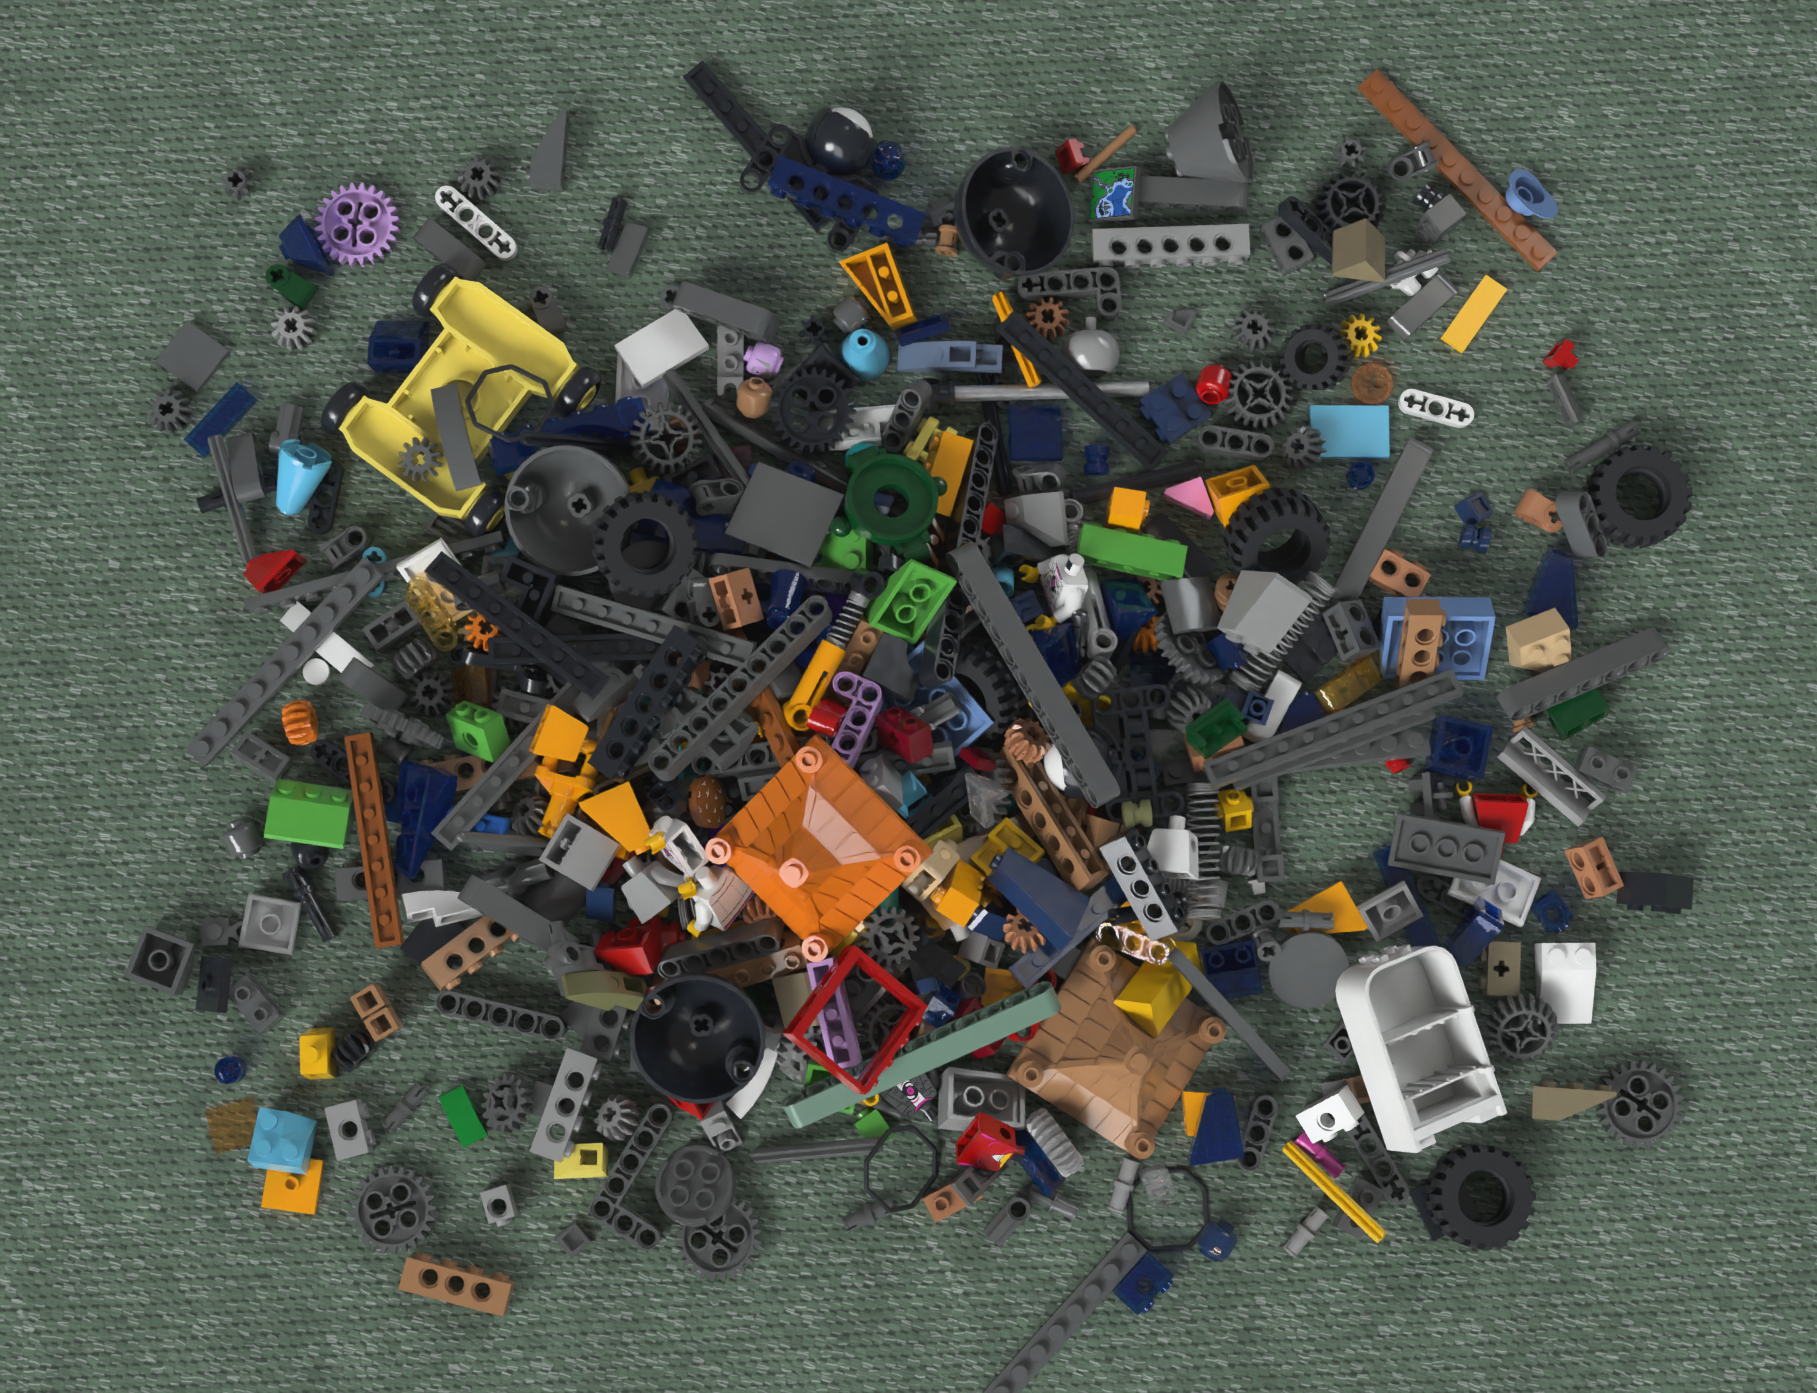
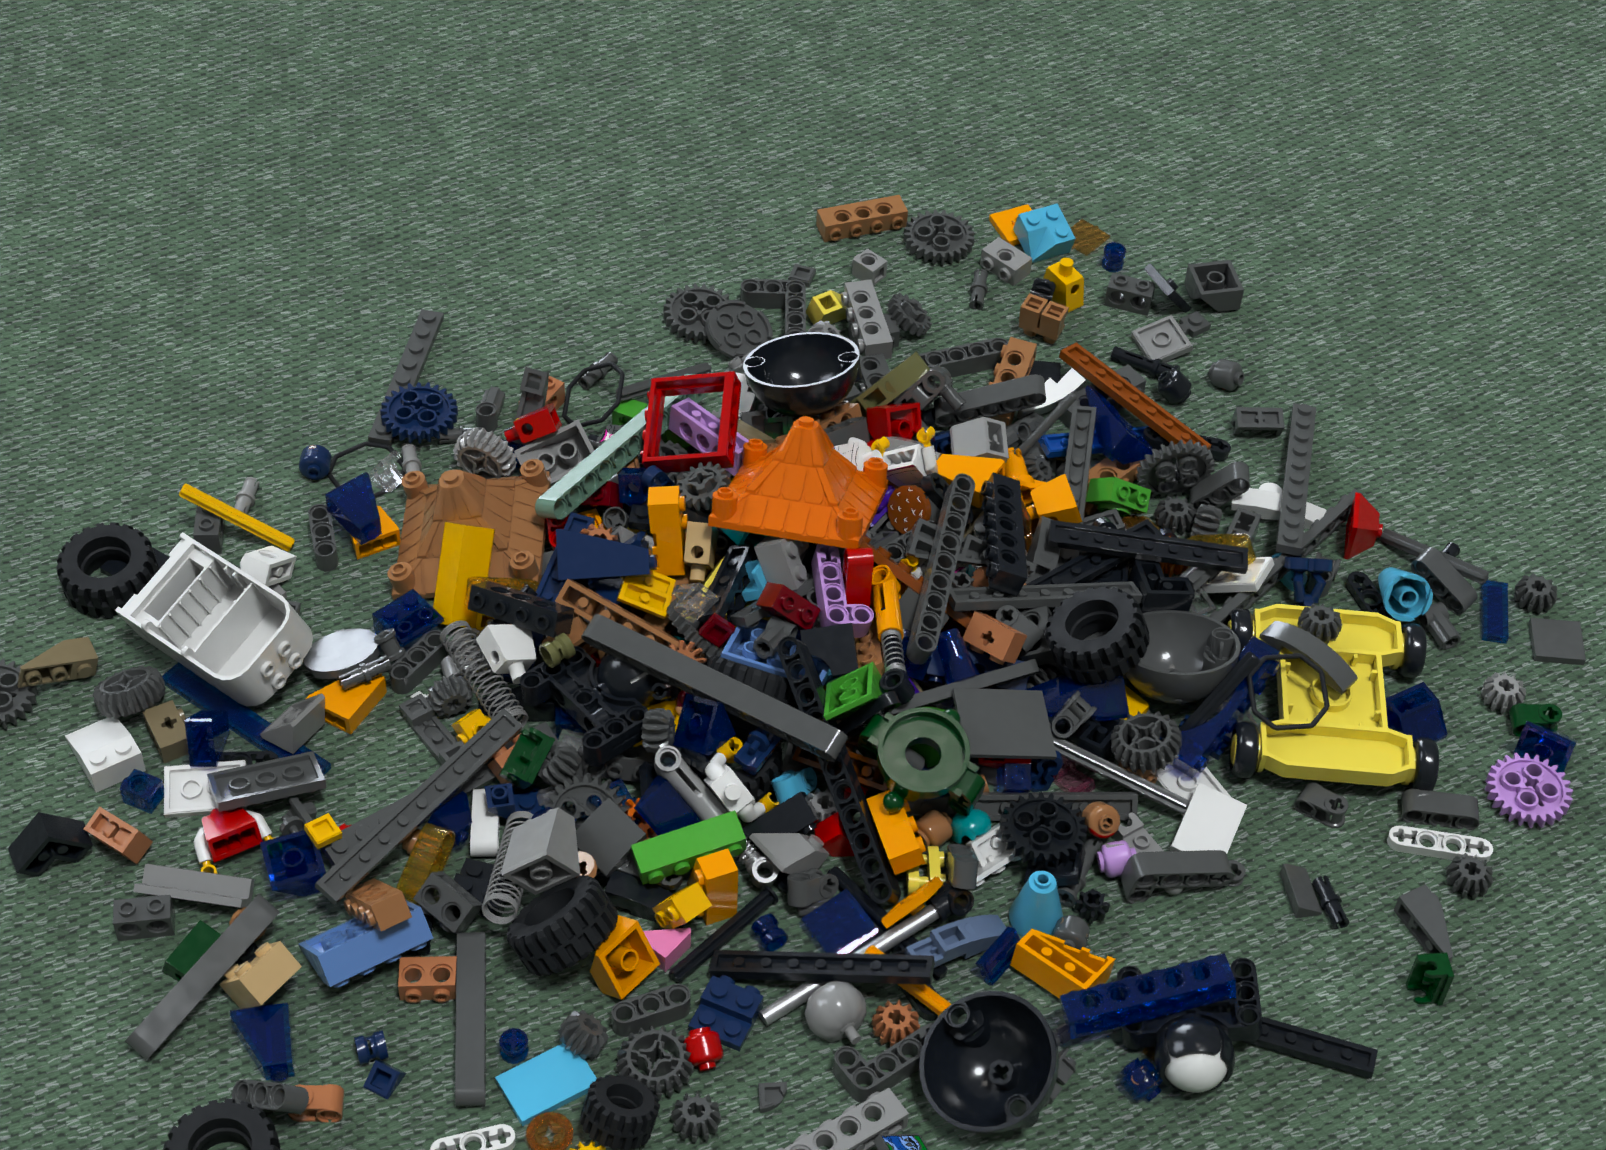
camera: 145 degrees right, 35 degrees down
(300, 722) = (1251, 450): orange gear -> none
(310, 814) = (1195, 397): bright green slope -> none
(376, 547) = (1315, 567): none -> dark blue piece
(462, 1115) = (938, 302): green slope -> none
(592, 102) = (1431, 975): none -> dark green hinge
(970, 404) = (912, 903): none -> light orange plate
(1069, 1264) = (419, 412): none -> dark blue gear
(1128, 1290) = (358, 415): clear blue brick -> none
(1166, 508) = (681, 907): none -> yellow brick
(1228, 1014) = (399, 575): dark grey beam -> none
(1320, 1155) = (248, 545): dark pink pin -> none
(1427, 754) = (323, 831): none -> yellow tile

